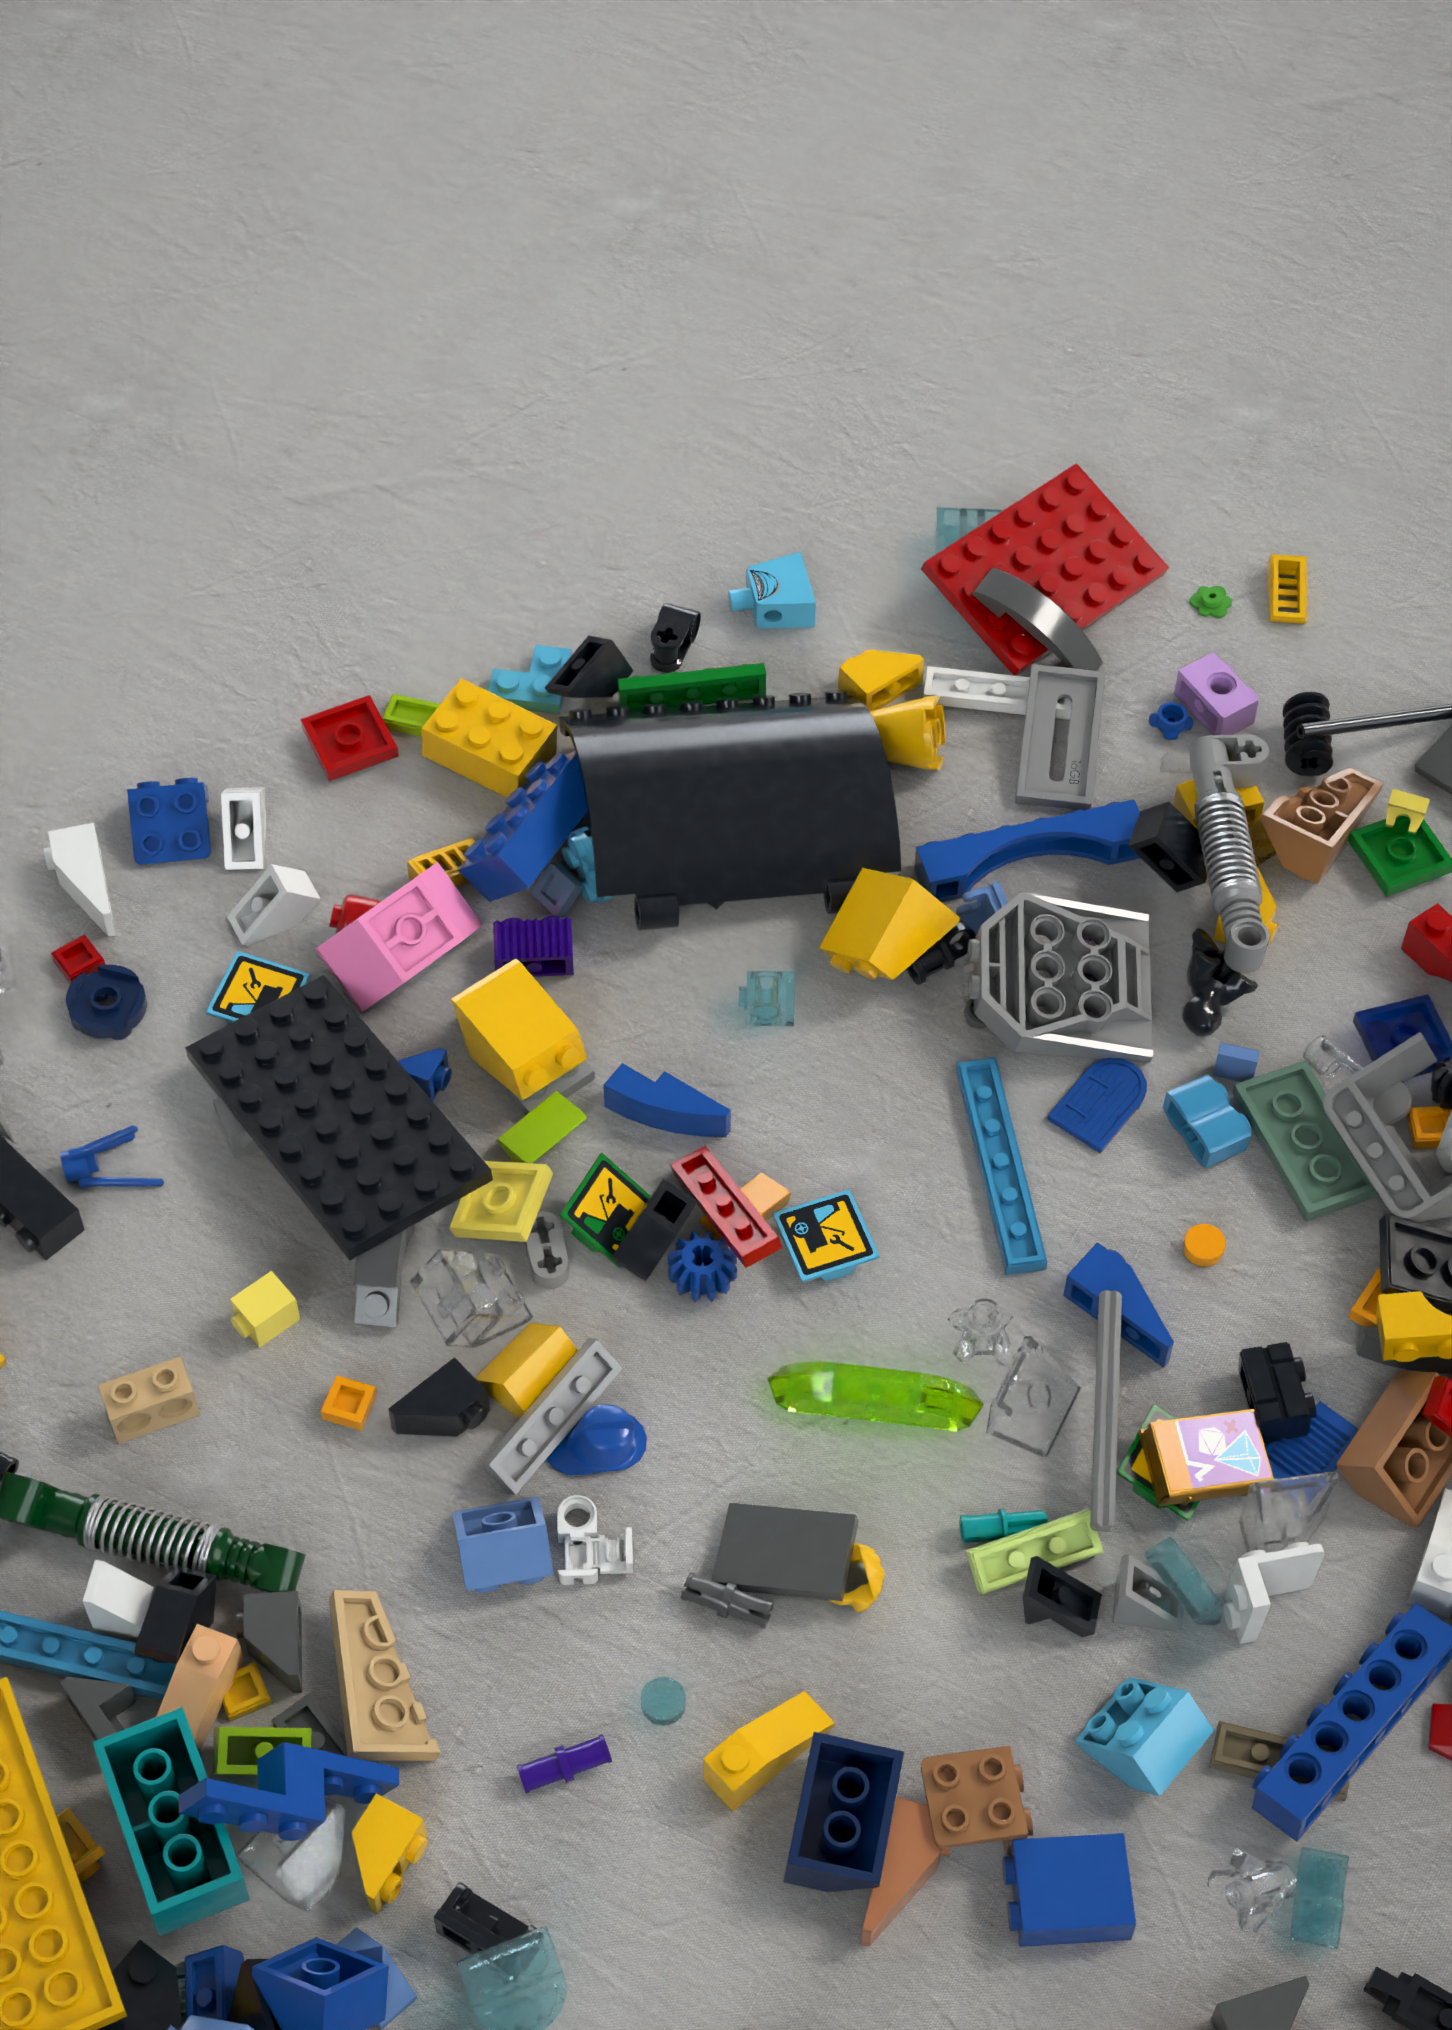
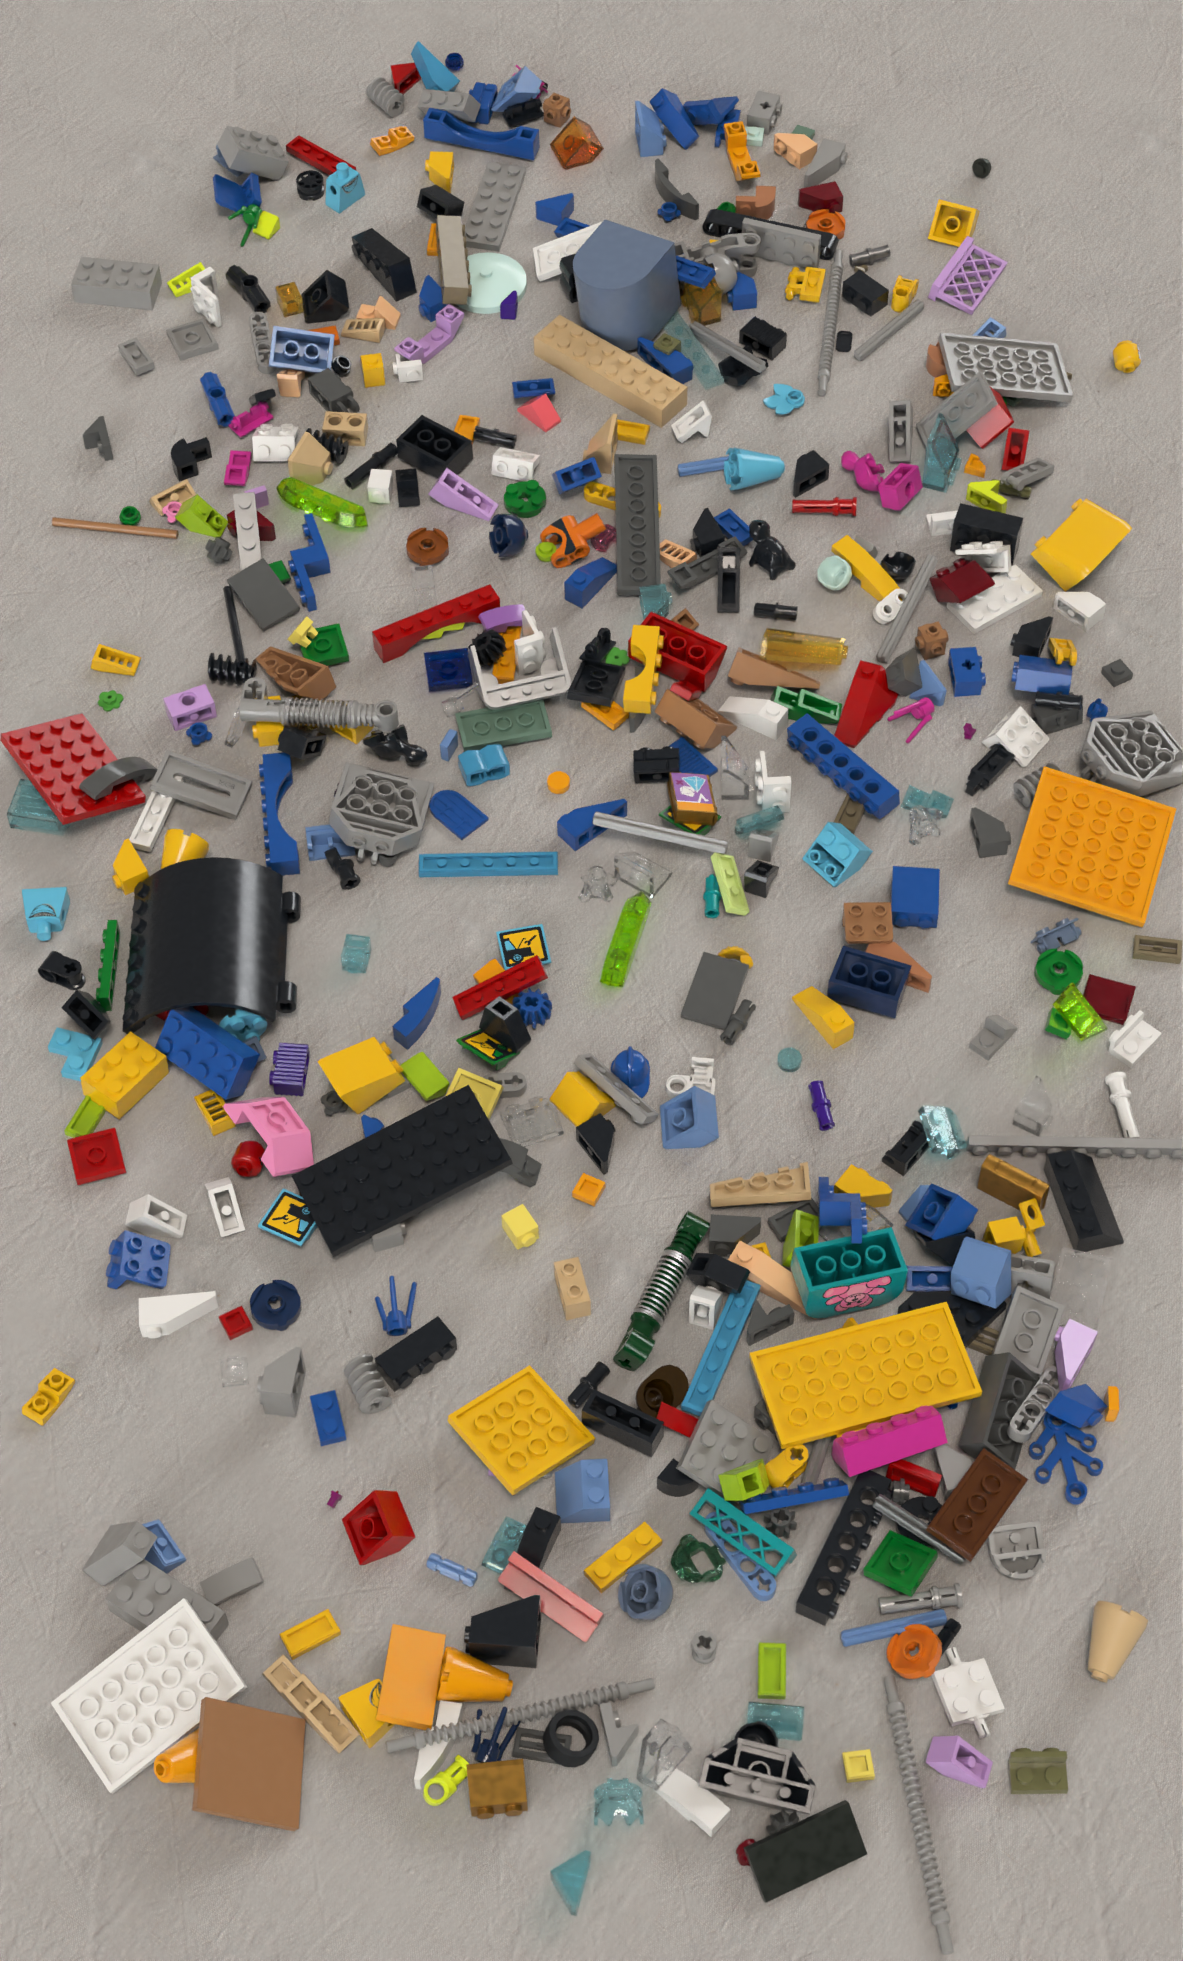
camera: 80 degrees left, 0 degrees up
(885, 925) = (327, 885): yellow slope -> none

